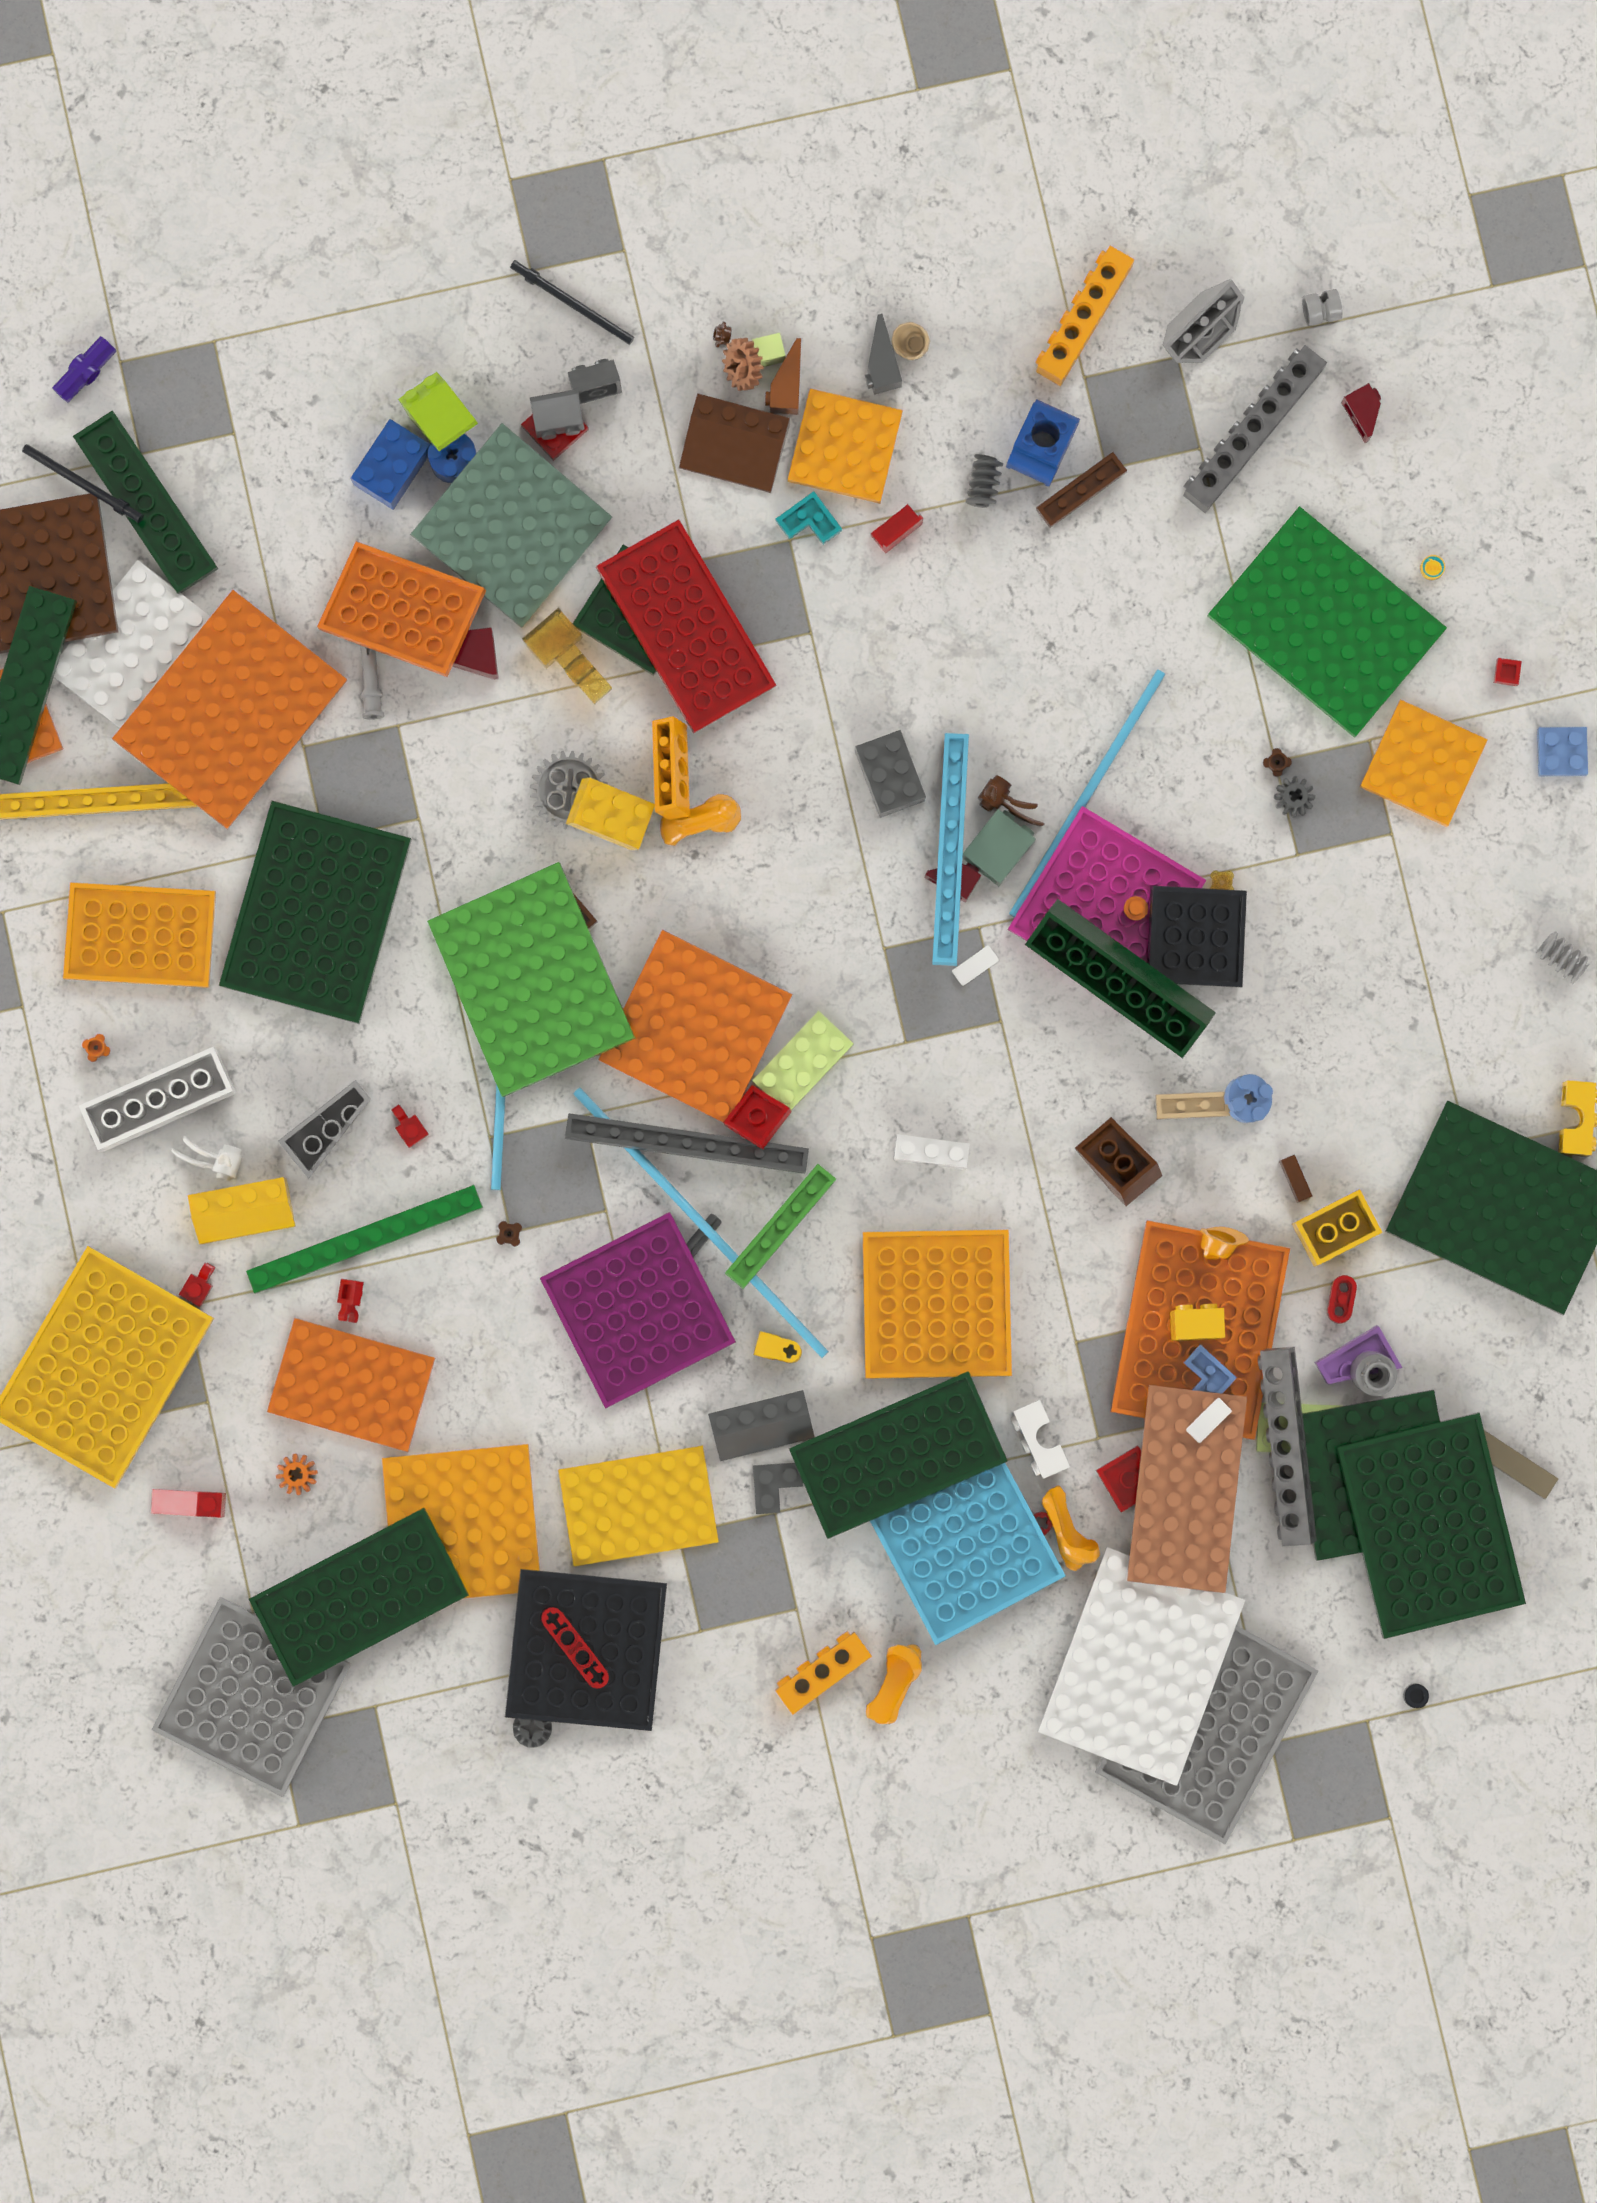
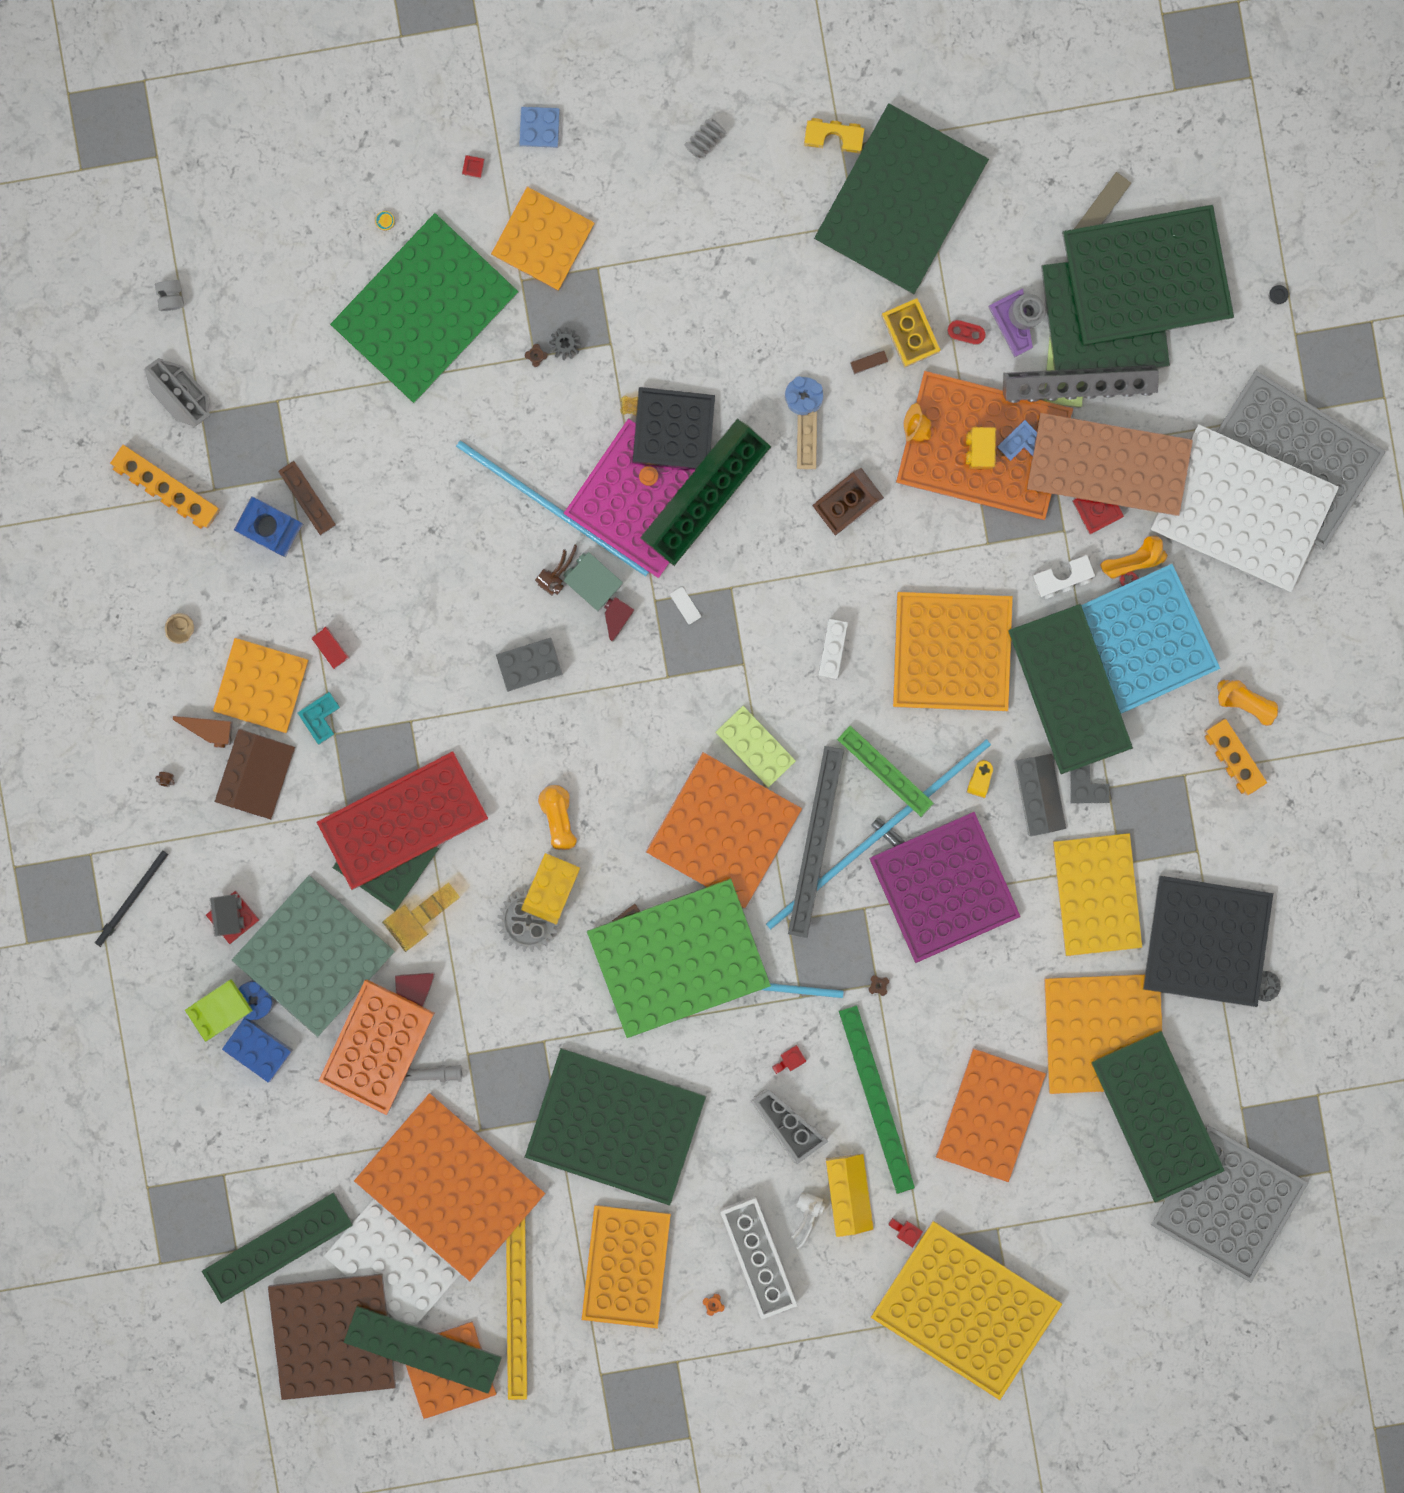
camera: 85 degrees left, 5 degrees up
(84, 369) = (166, 1292): dark purple piece -> none
(119, 505) = (280, 1268): black bar -> none
(188, 1503) = (1076, 1246): slope -> none
(294, 1466) = (1052, 1164): orange gear -> none
(350, 1296) = (921, 1113): red plate -> none
(572, 1649) = (1205, 948): red beam -> none
(595, 380) = (198, 883): dark grey slope -> none
(670, 768) = (516, 838): light orange brick -> none
(742, 364) = (191, 764): nougat gear -> none
(757, 1117) = (798, 785): red plate -> none
(770, 349) = (180, 743): yellowish green brick -> none
(882, 367) = (199, 651): dark grey slope -> none
(950, 849) = (594, 620): medium azure plate -> none
(983, 481) = (296, 575): dark grey piece -> none
(1208, 1420) = (1058, 444): white sticker -> none
(1311, 366) = (216, 307): flat silver brick -> none
(1363, 409) = (254, 267): dark red slope -> none

